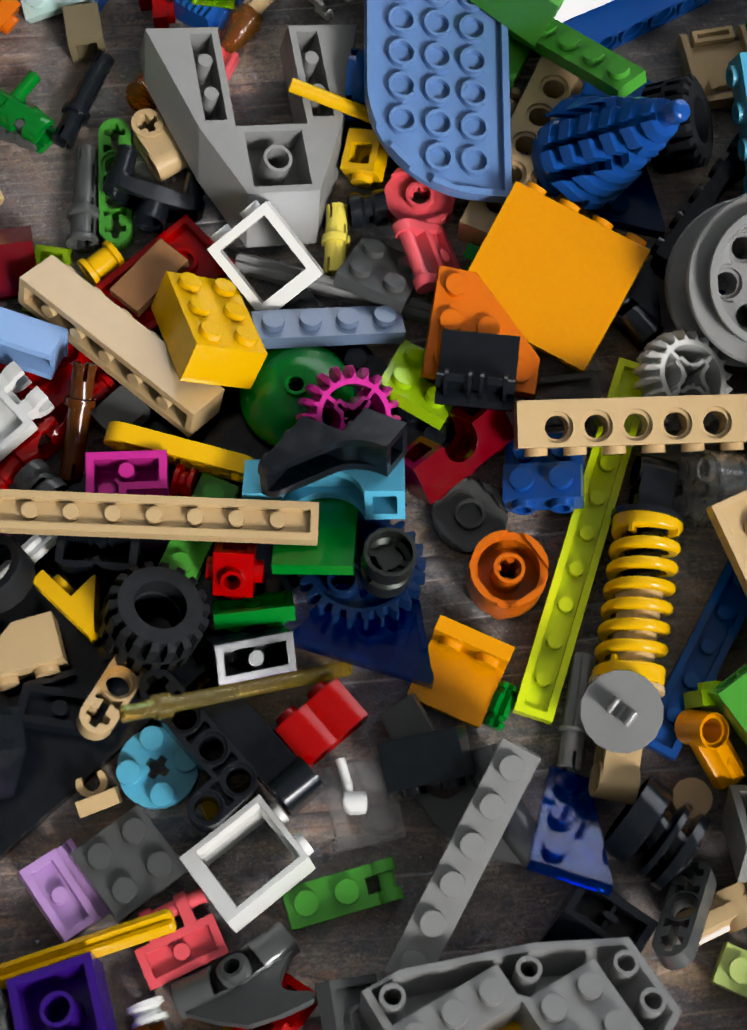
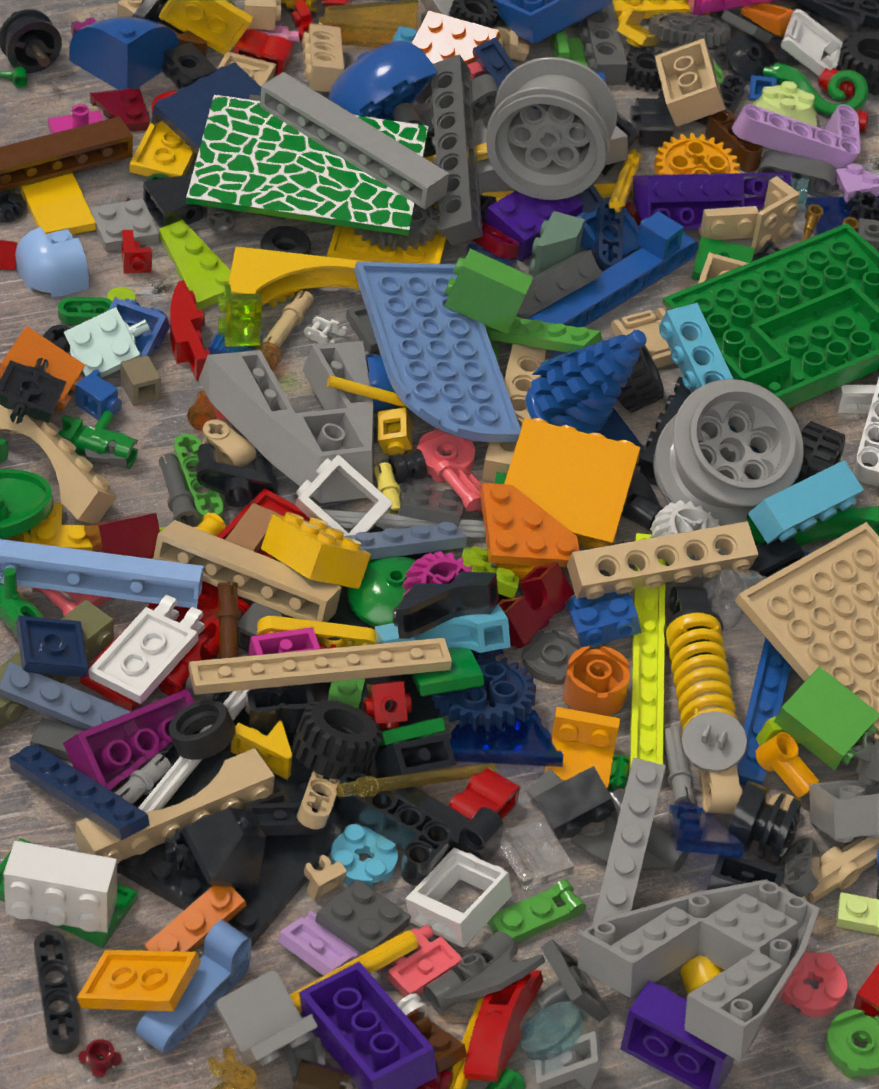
camera: 15 degrees left, 25 degrees down
(28, 45) = (97, 395): none -> blue brick
(77, 109) = (151, 433): black pin -> none
(353, 801) = (526, 844): white hand -> none
(387, 562) = (508, 669): pearl dark grey wheel -> none
(477, 370) = (534, 543): black hinge -> none

